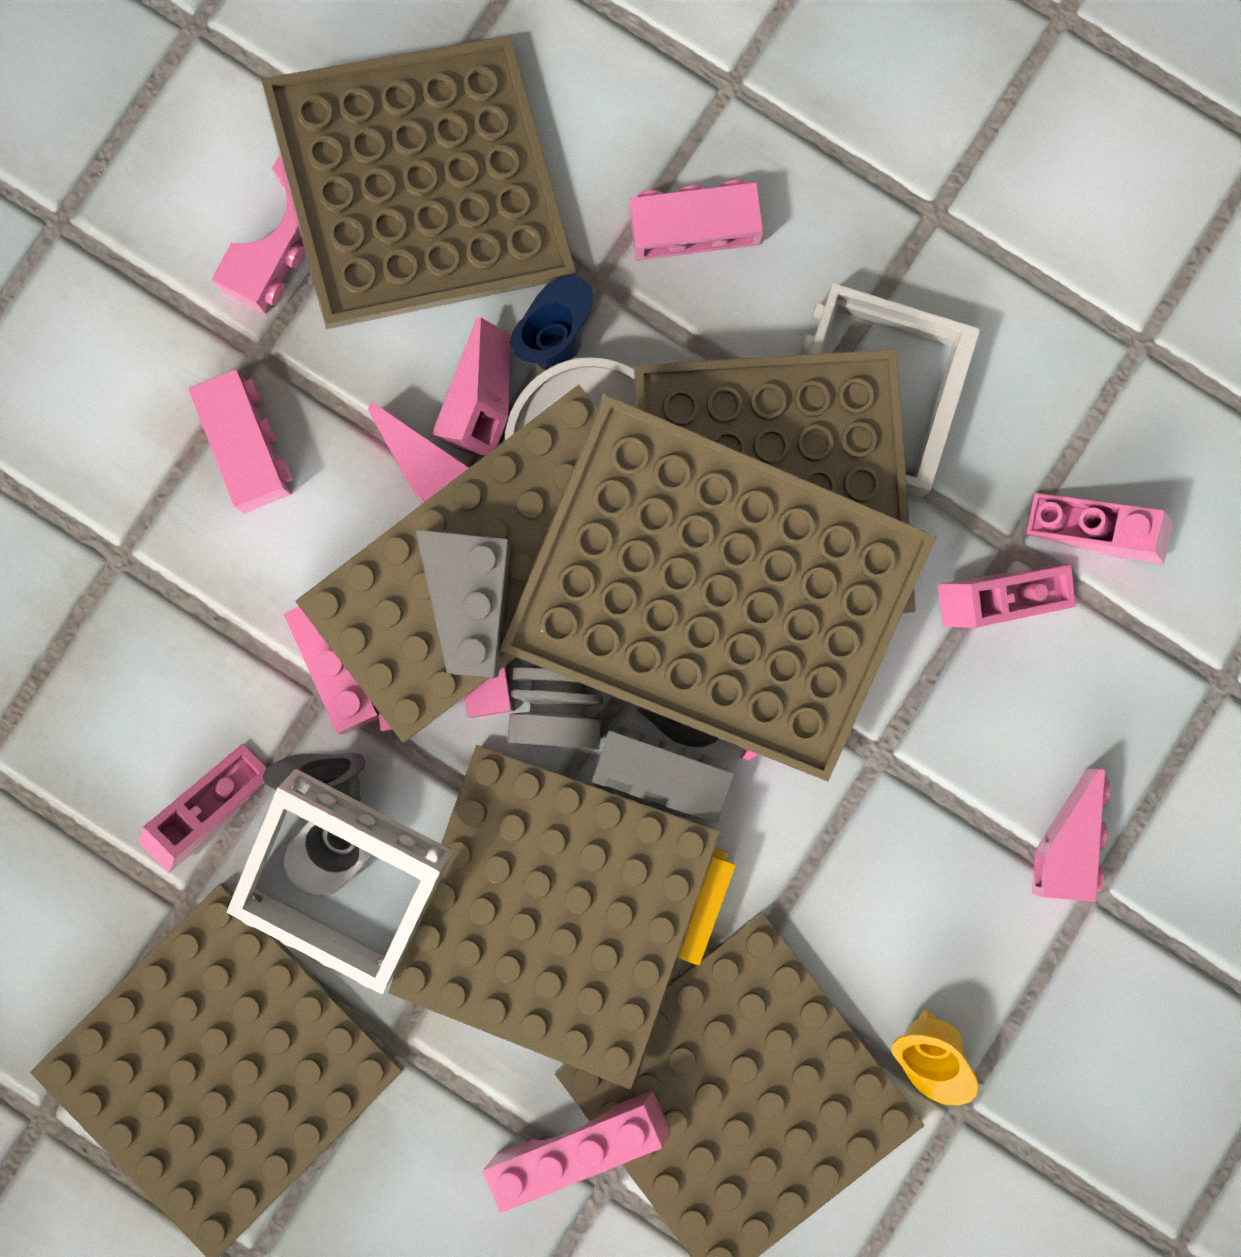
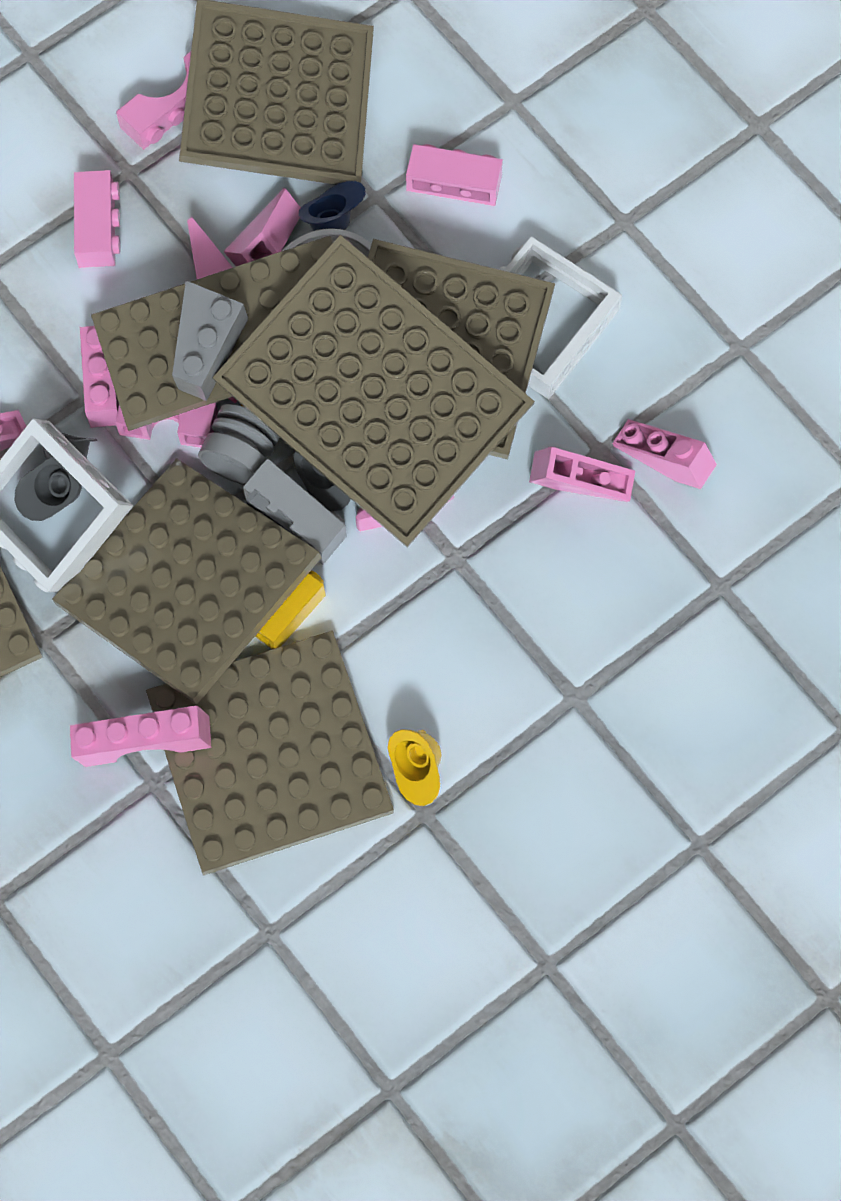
camera: 20 degrees right, 15 degrees down
(1069, 852) = (564, 655): bright pink slope -> none

